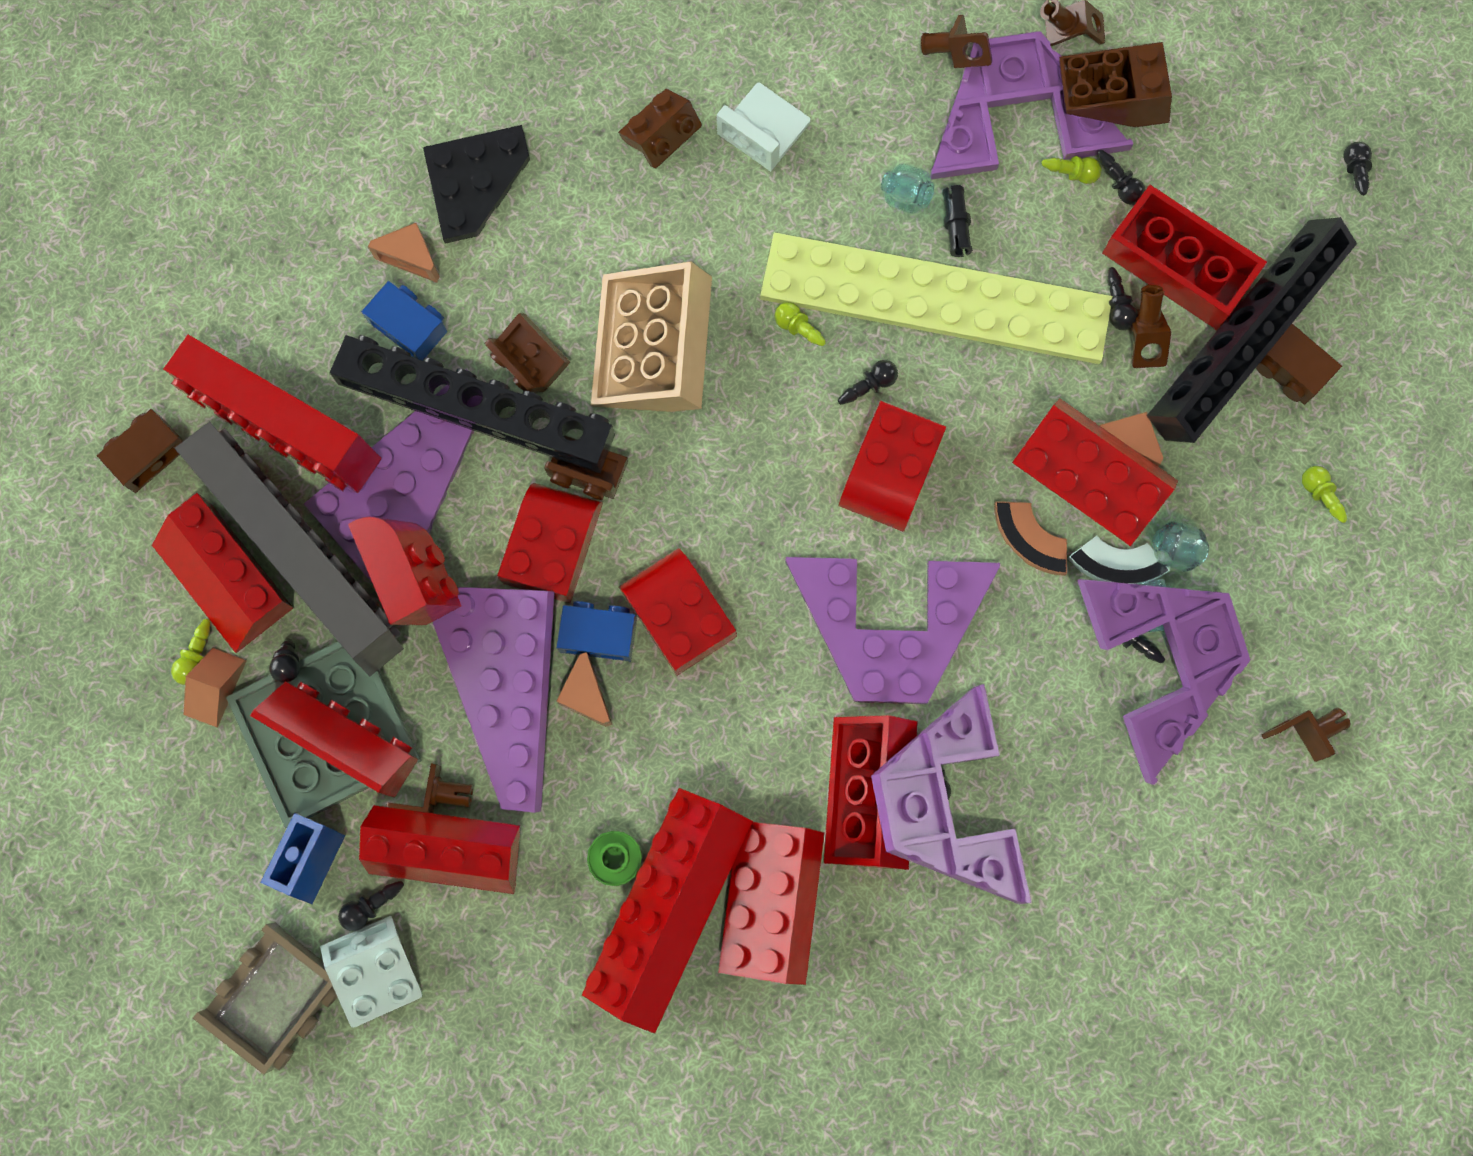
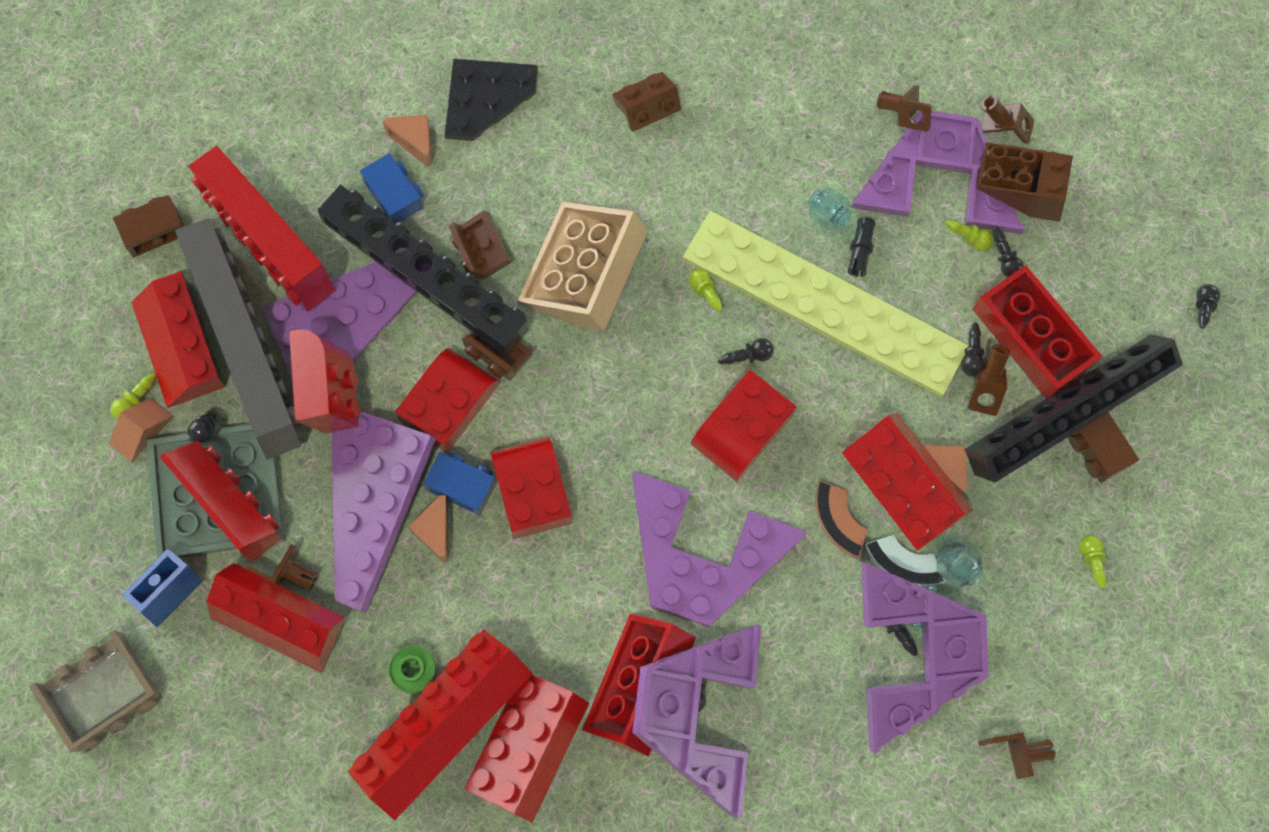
camera: 10 degrees right, 5 degrees down
(355, 914) = (188, 647): black bar -> none
(370, 972) = (184, 697): light aqua bracket -> none
(762, 126) = (729, 124): light aqua bracket -> none

